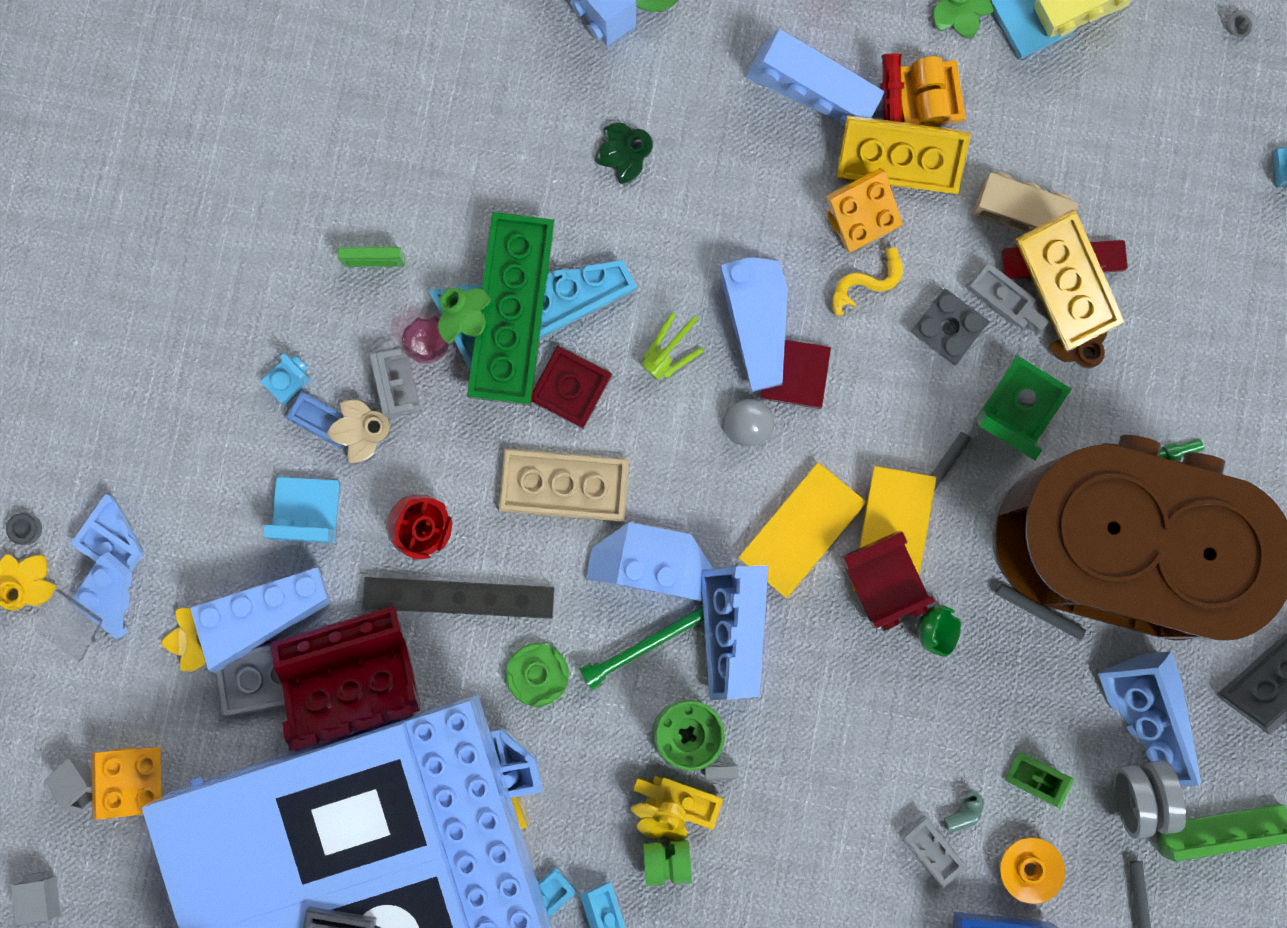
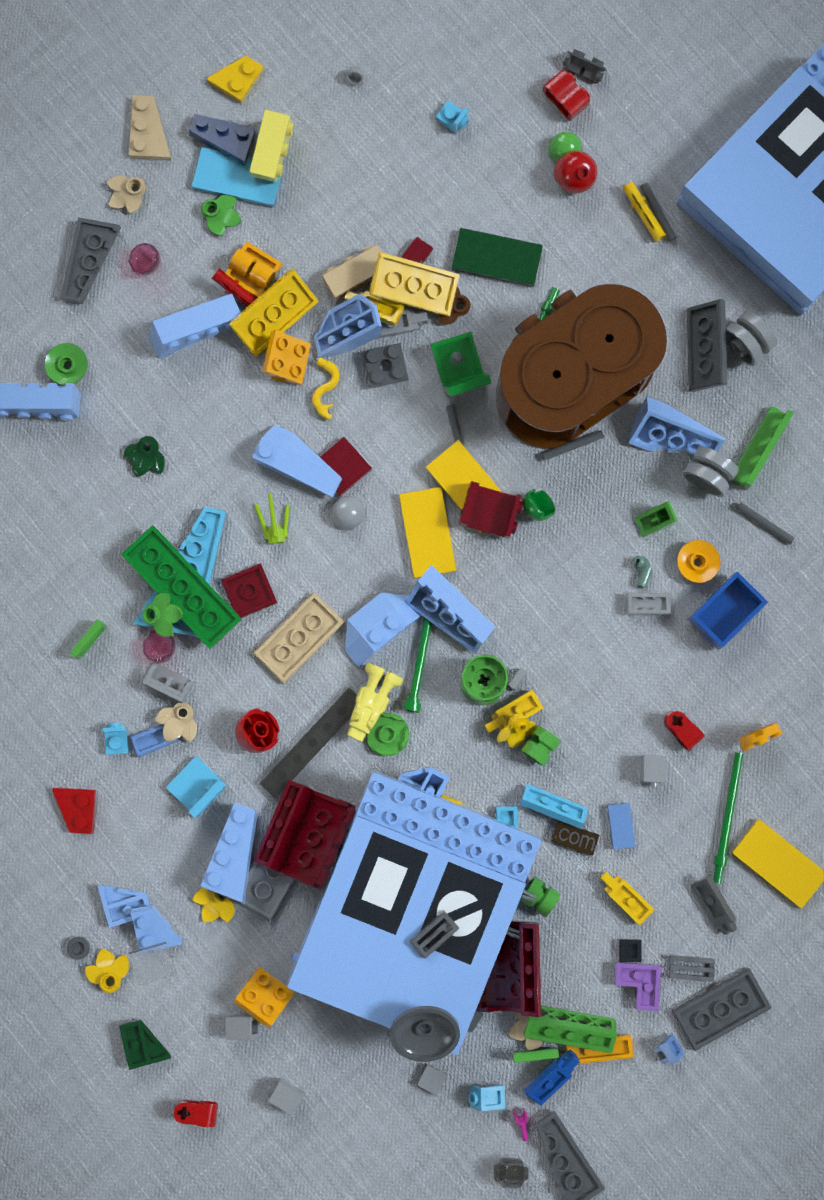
camera: 50 degrees left, 0 degrees up
(176, 399) = (77, 808): none -> red wing
(554, 628) = (371, 704): none -> light yellow piece
(958, 249) = (348, 327): none -> light blue wedge
(1005, 260) = (388, 311): none -> yellow hinge
(1179, 348) = (497, 257): none -> dark green tile

